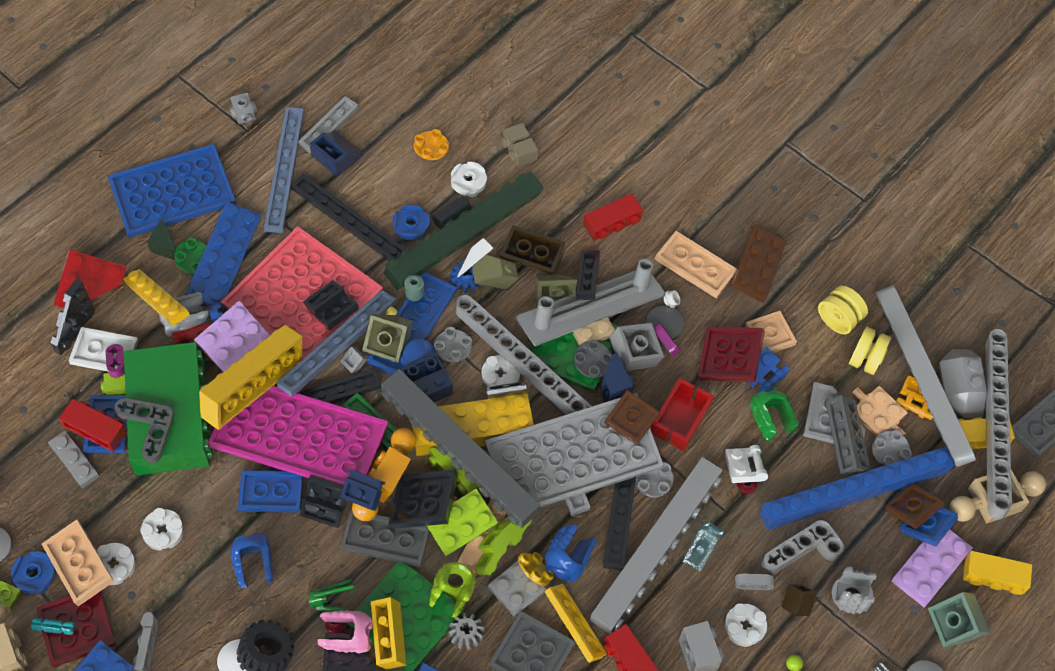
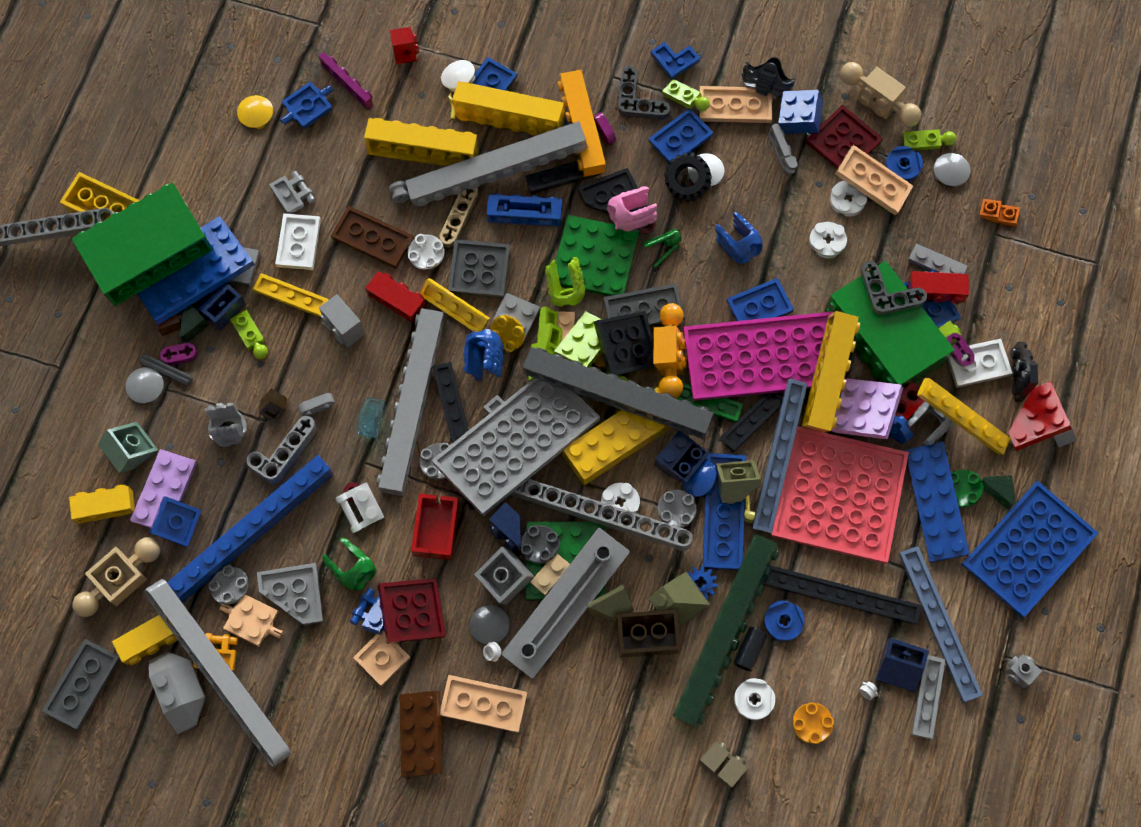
camera: 160 degrees right, 10 degrees up
(53, 626) = (859, 127): teal axle -> none
(323, 501) = (709, 312): black slope -> none
(330, 305) = (807, 491): black slope -> none
(353, 360) = (757, 451): light grey plate -> none
(362, 489) = (678, 316): dark blue plate -> none
(373, 148) = (868, 690): none -> white plate
(388, 633) = (598, 223): yellow brick -> none
(414, 288) = (736, 541): sand green brick -> none
(473, 628) = (535, 266): light grey gear -> none
(475, 254) = (700, 600): white sticker -> none
(506, 390) = (603, 474): slope -> none
(588, 275) = (583, 631): black plate -> none
(613, 217) = (587, 718): red brick -> none
(632, 417) = (476, 487): reddish brown tile -> none
(666, 339) = (480, 600): magenta beam -> none
(735, 630) = (304, 360): white plate -> none
(843, 309) = (315, 711): light yellow wheel -> none
(846, 436) = (275, 570): dark grey fence -> none
(869, 350) = (276, 673): light yellow wheel -> none
(914, 505) = (192, 533): reddish brown tile -> none
(997, 425) = (136, 652): light grey beam -> none

